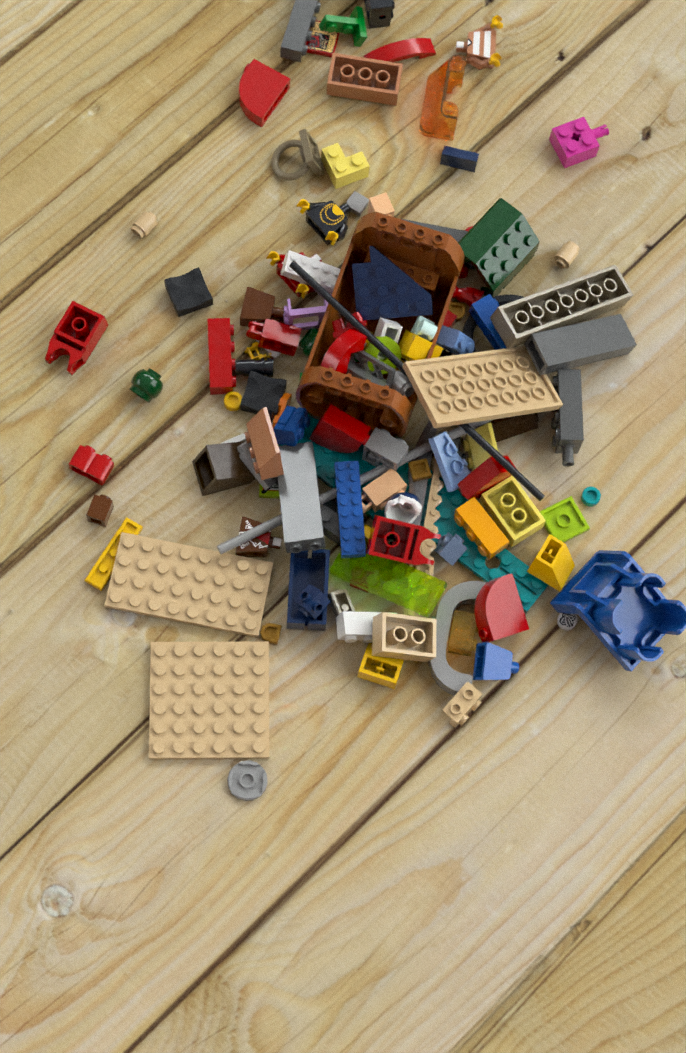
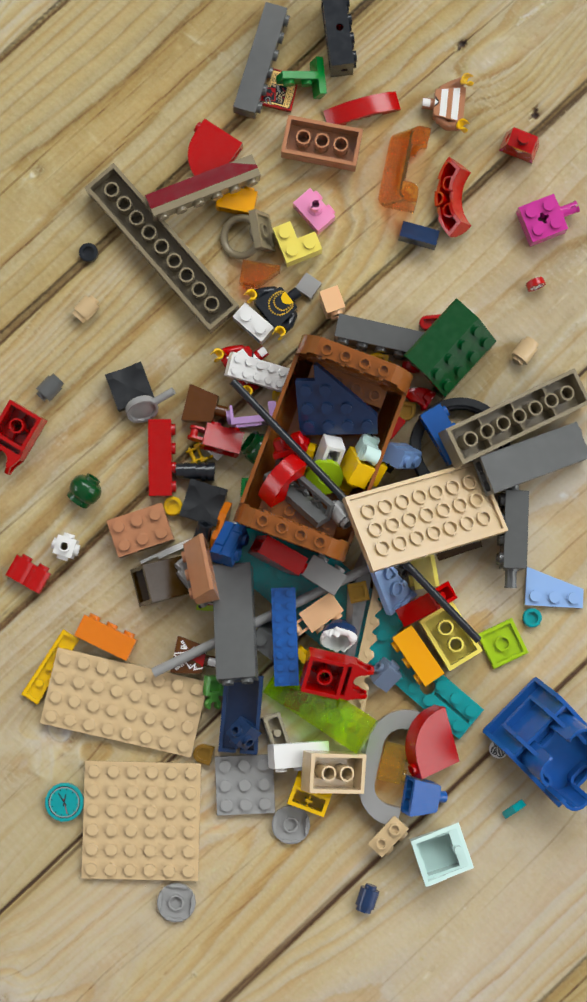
camera: 10 degrees right, 15 degrees up
(100, 510) = (37, 622): reddish brown brick -> none
(110, 294) = (49, 387): none -> dark grey brick
(128, 437) = (70, 552): none -> white brick
(130, 683) = (64, 802): none -> teal tile
(145, 178) = (88, 252): none -> black tile
(170, 522) = (106, 636): none -> orange brick
(202, 421) = (140, 530): none -> nougat brick
(204, 307) = (146, 407): none -> light grey piece
(217, 170) = (162, 249): none -> dark tan brick
(254, 113) = (202, 188): none -> brick
(279, 567) = (212, 690): none -> bright green plate
(284, 128) = (238, 202): none -> light orange brick
(306, 234) = (253, 323): none -> white brick
(309, 190) = (257, 274): none -> clear orange slope
(313, 662) = (244, 785): none -> light grey plate
(359, 136) = (314, 210): none -> bright pink brick
(362, 700) = (290, 824): none -> light grey tile
(443, 768) = (367, 898): none -> dark blue brick
(486, 123) = (449, 198): none -> red brick
(516, 715) = (441, 854): none -> light aqua piece
(550, 78) = (520, 144): none -> red torso
(552, 563) = (487, 693): yellow slope -> none
(572, 197) = (535, 284): none -> red tile
(586, 676) = (514, 808): none -> teal tile
(608, 472) = (550, 591): none -> light blue wing

